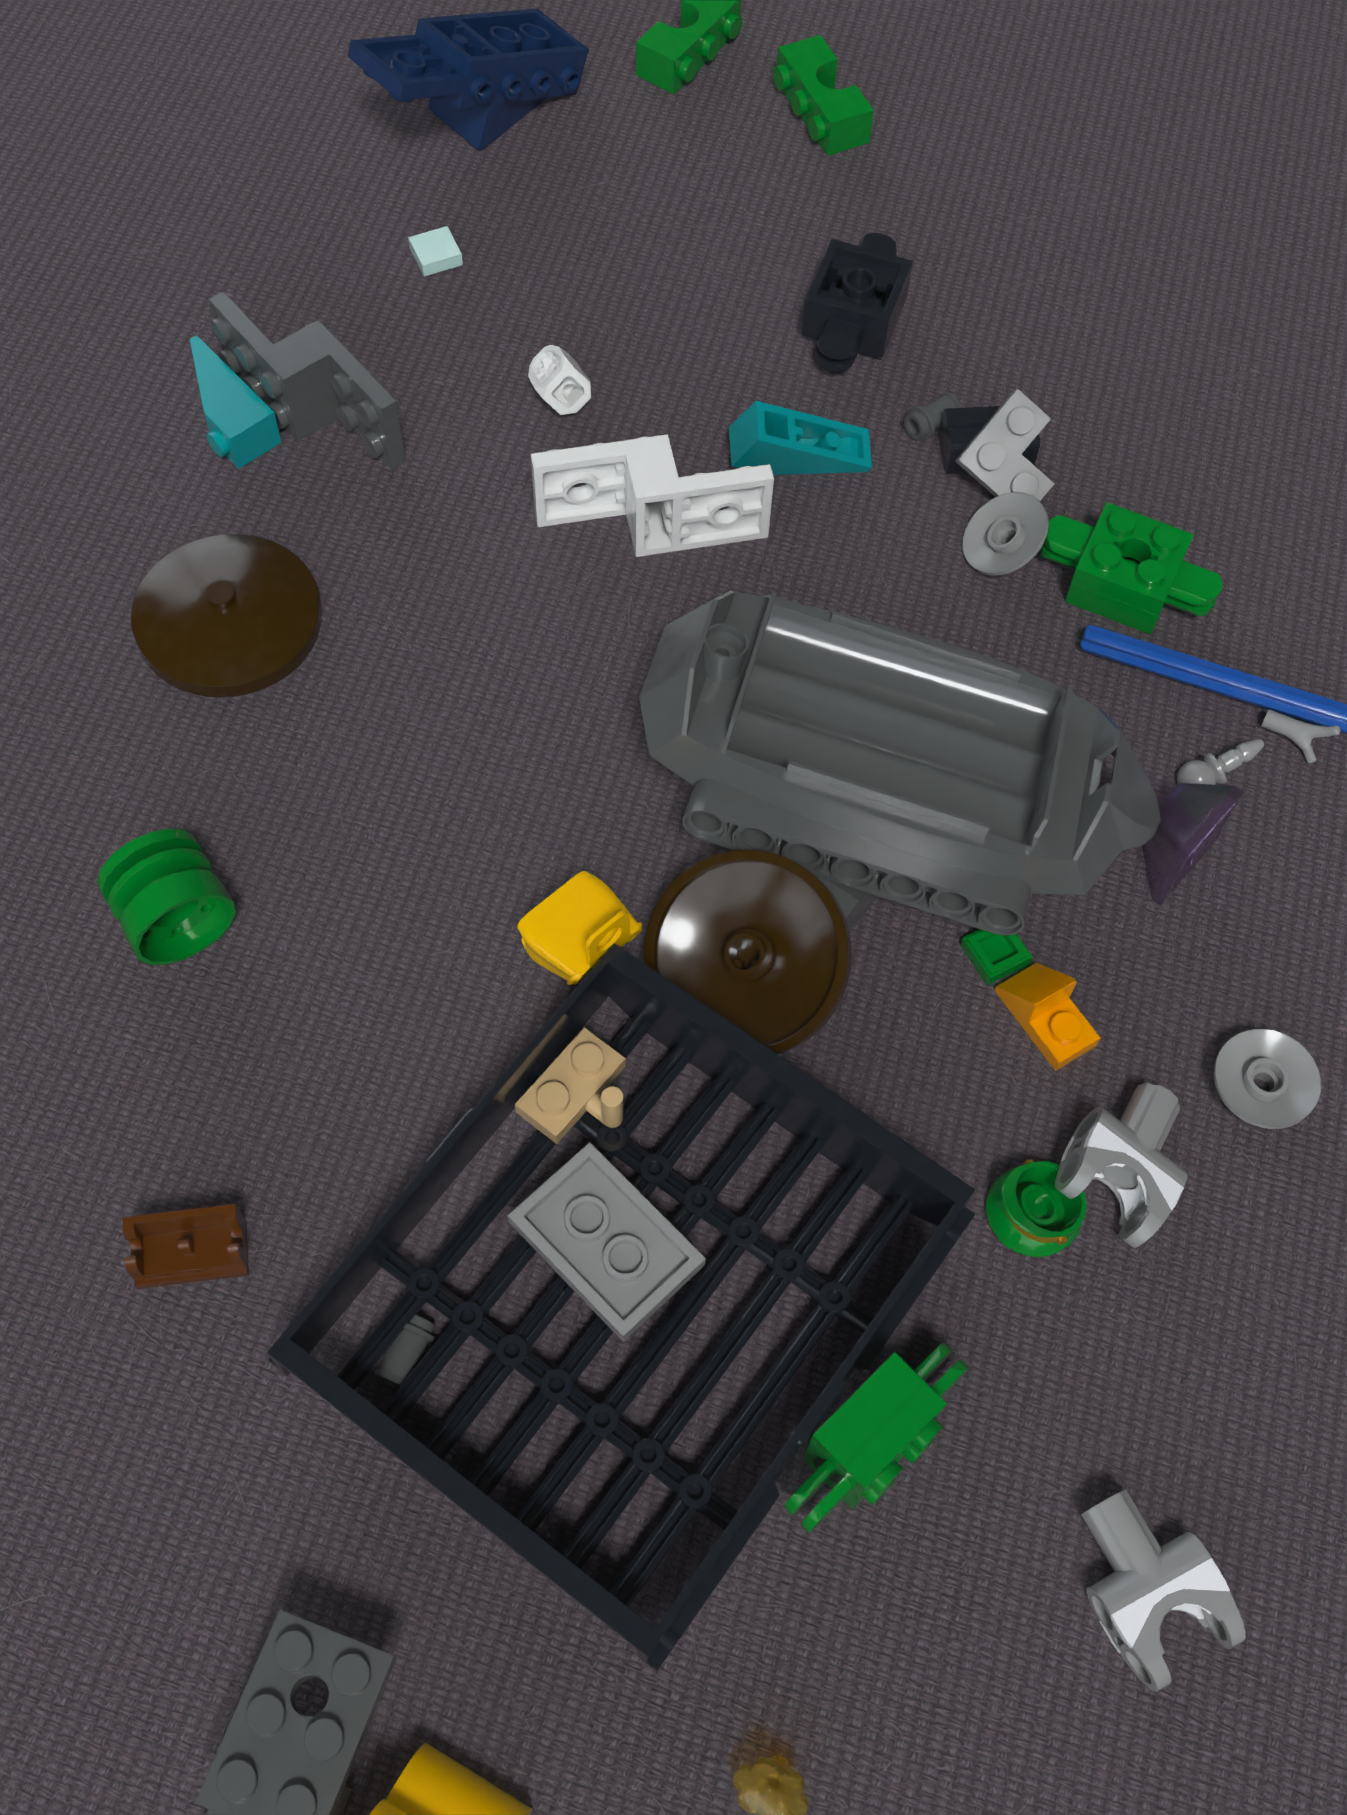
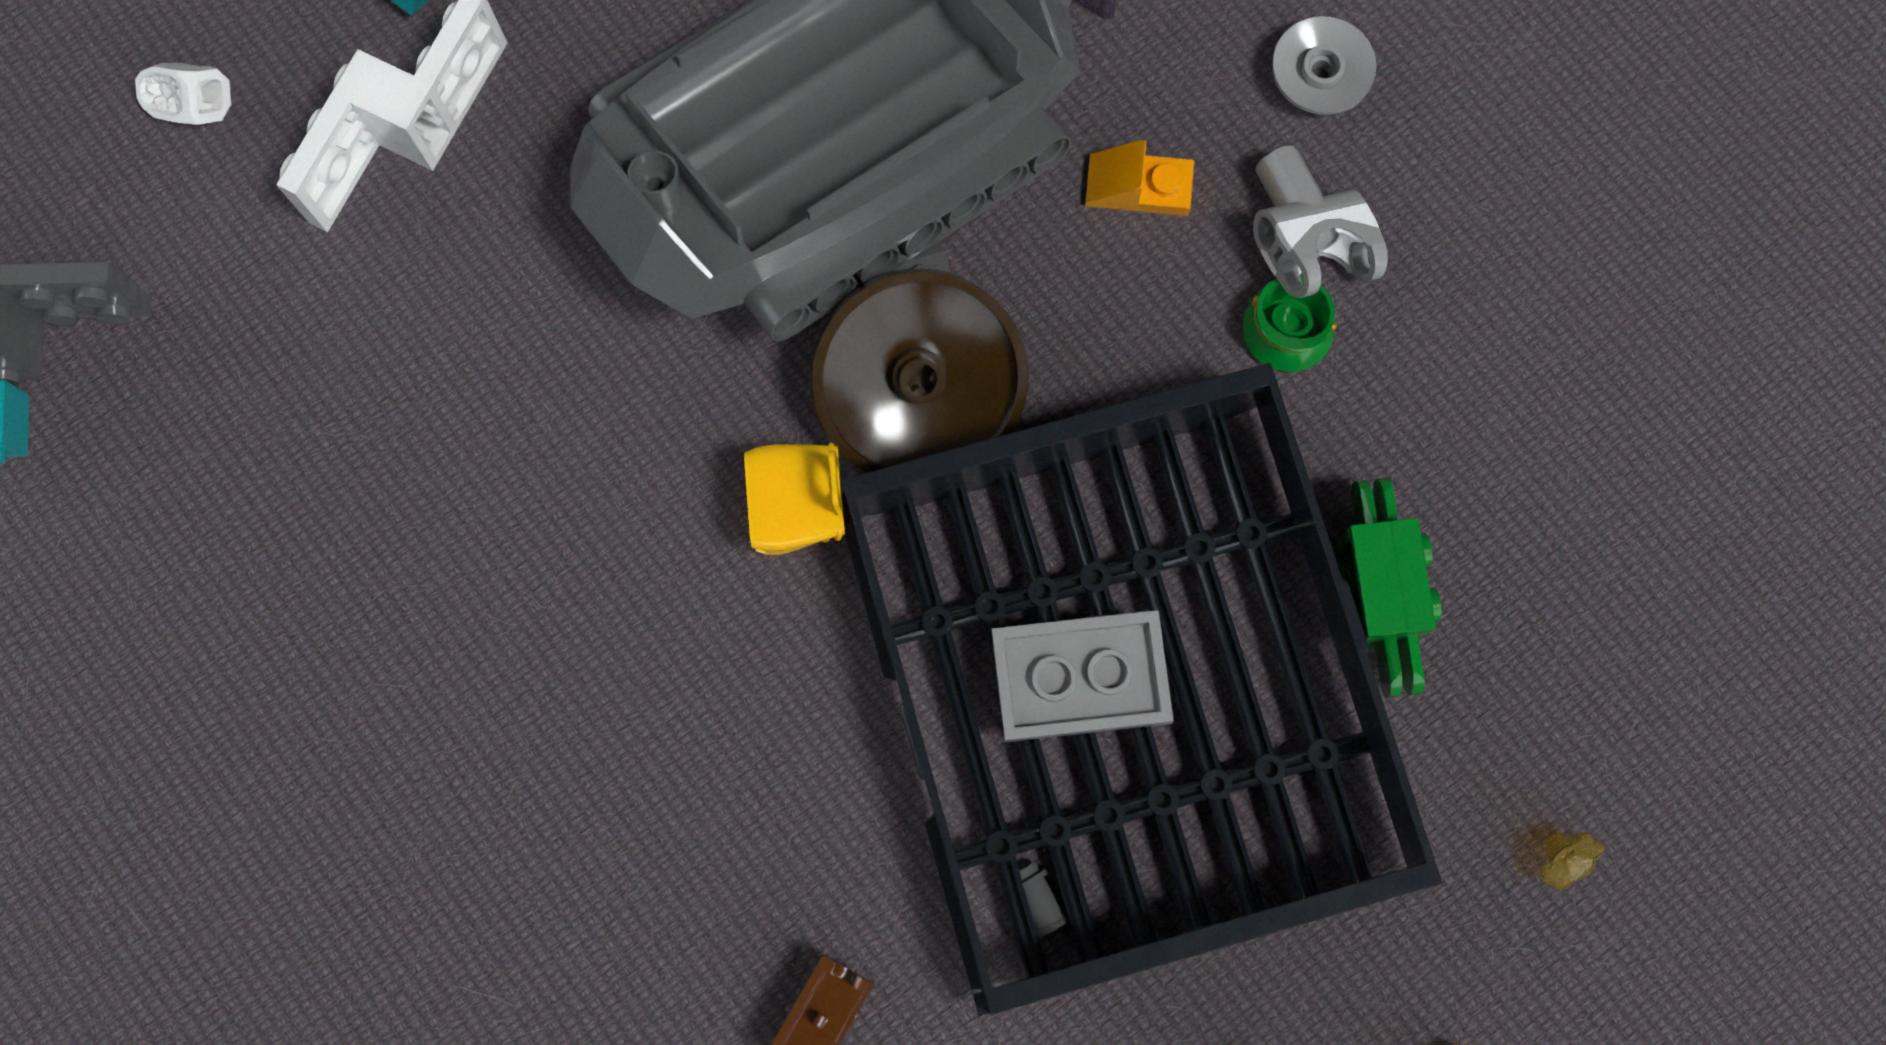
camera: 50 degrees left, 15 degrees up
(165, 896) = (470, 825): green wheel -> none
(226, 615) = (194, 577): dark brown dish -> none
(575, 1085) = (927, 607): tan plate -> none
(995, 954) = (1060, 183): green tile -> none
(1151, 1583) = (1627, 474): light grey connector -> none

